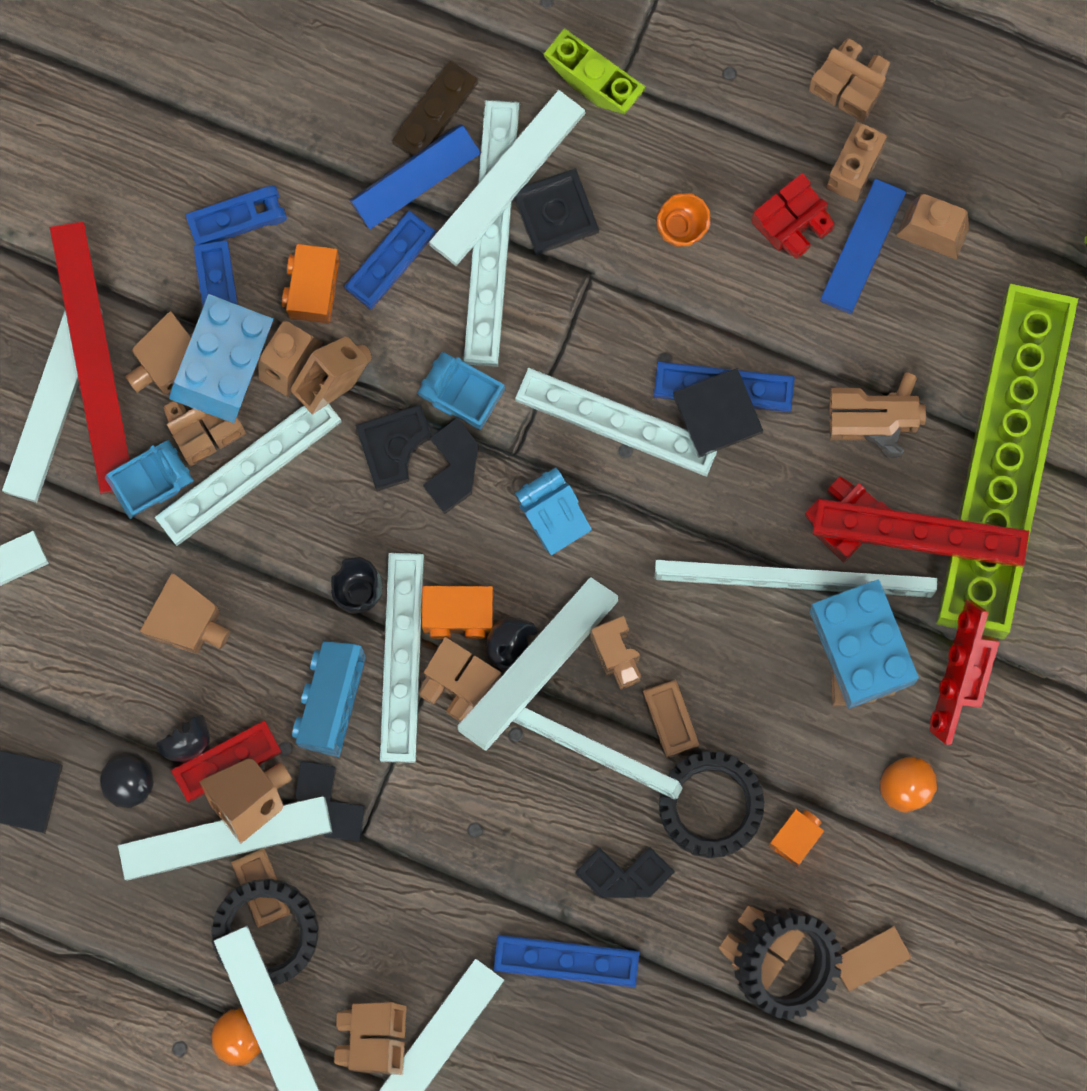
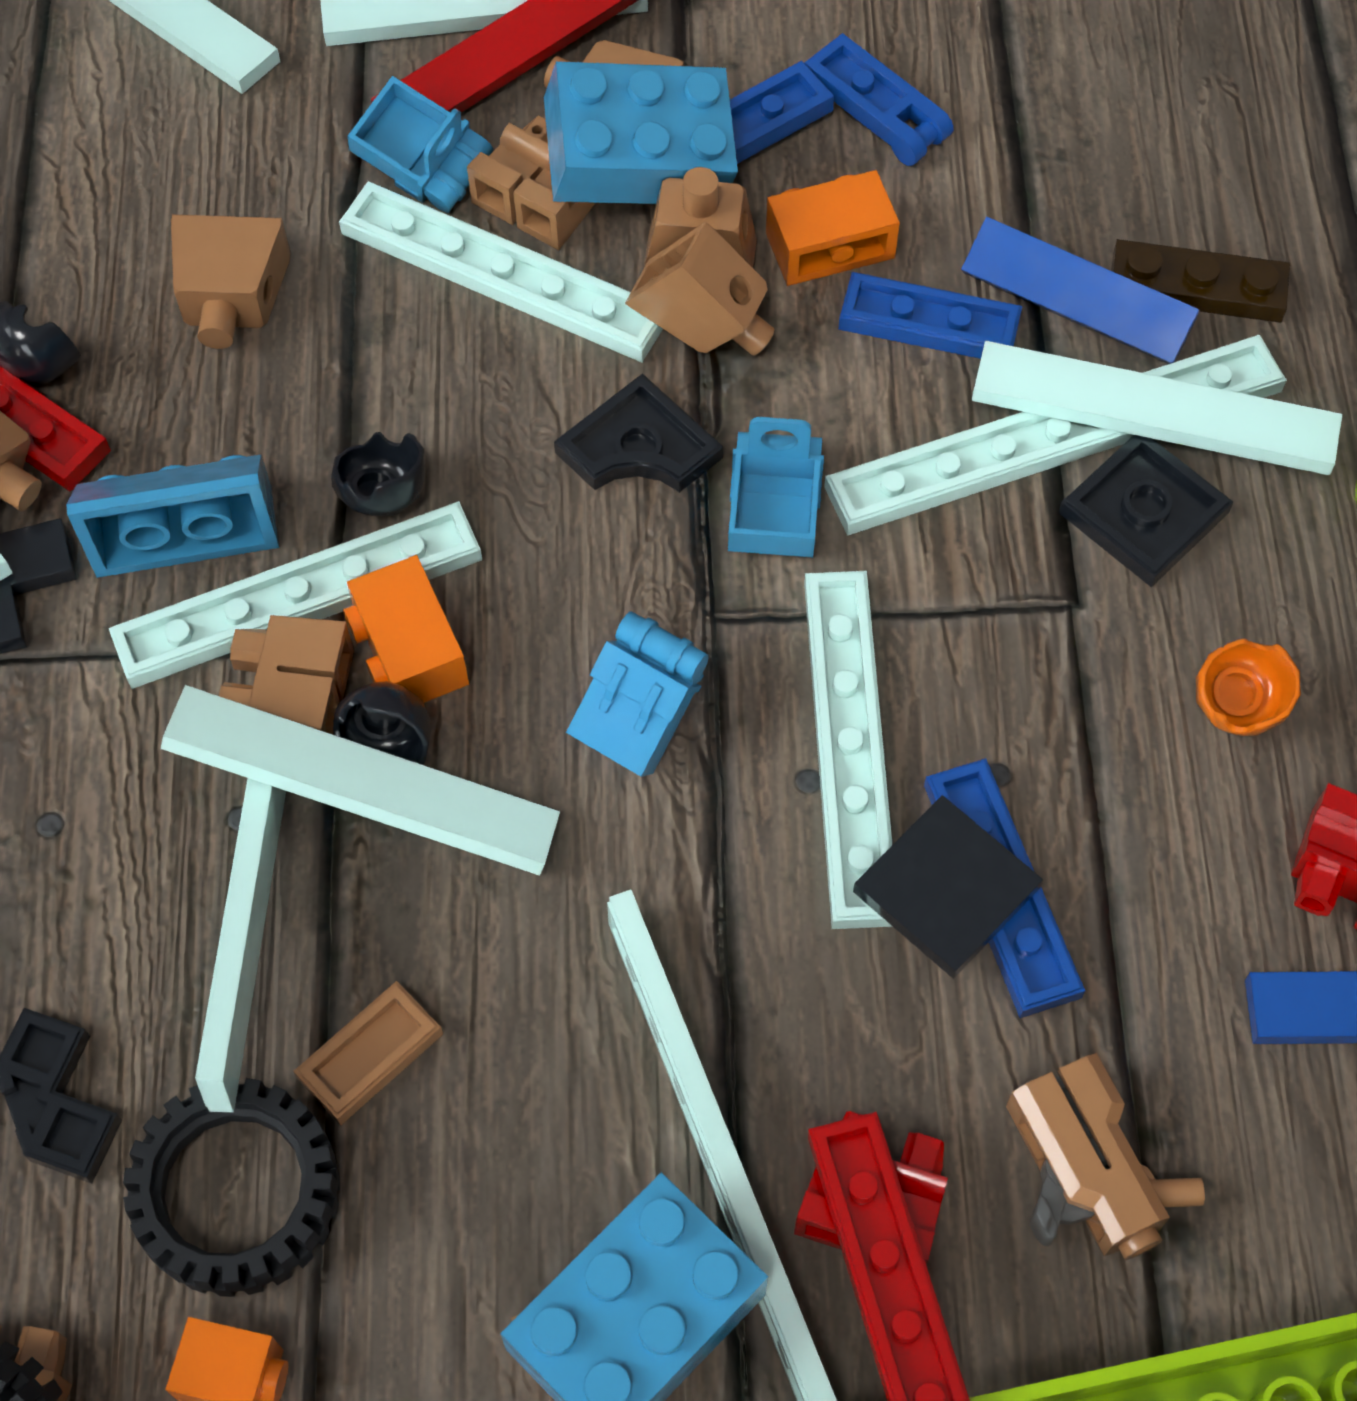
camera: 60 degrees right, 15 degrees down
(457, 480) = (625, 549): black tile -> none
(613, 654) = (434, 893): medium nougat hips -> none

